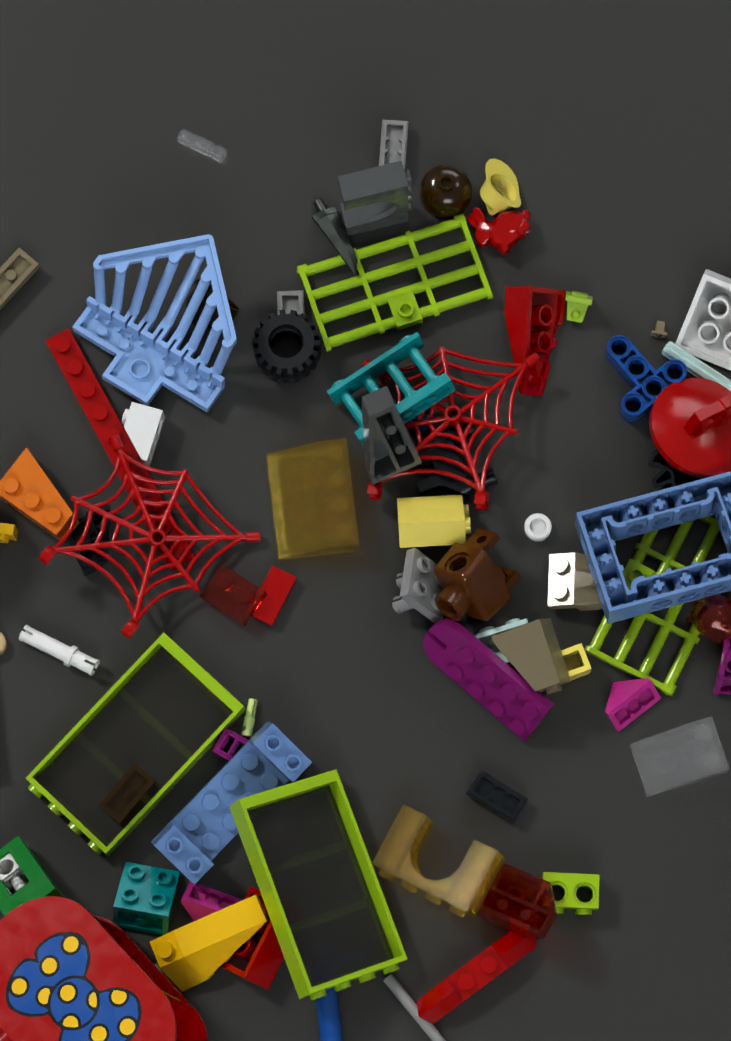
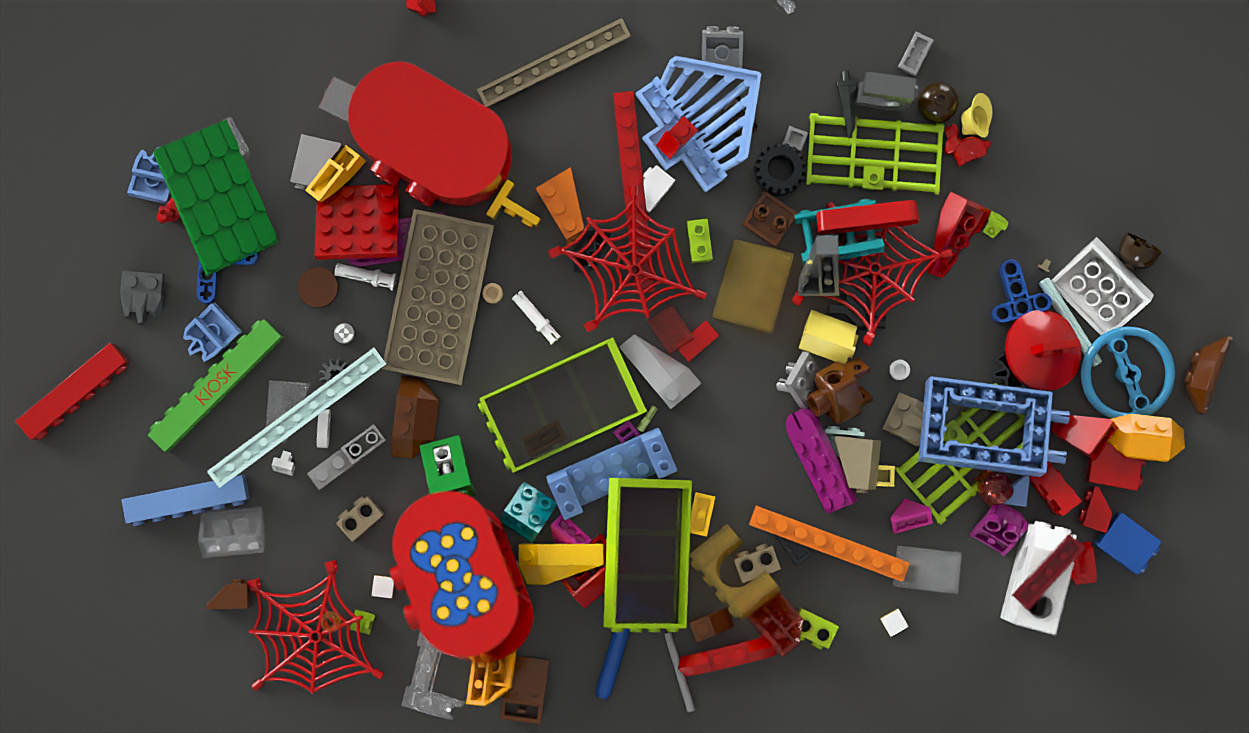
camera: 20 degrees right, 10 degrees up
(143, 359) = (677, 137): none -> red slope
(155, 228) = (723, 46): none -> light grey plate
(224, 472) = (699, 241): none -> lime brick
(248, 653) = (663, 373): none -> light grey wedge
(299, 411) = (769, 218): none -> reddish brown plate
(366, 807) = (701, 513): none -> yellow plate
(417, 353) = (867, 217): none -> red beam
(437, 942) = (711, 624): none -> reddish brown slope
(458, 835) = (757, 566): none -> dark tan brick
(542, 776) = (829, 543): none -> orange plate
(667, 842) = (894, 622): none -> white tile

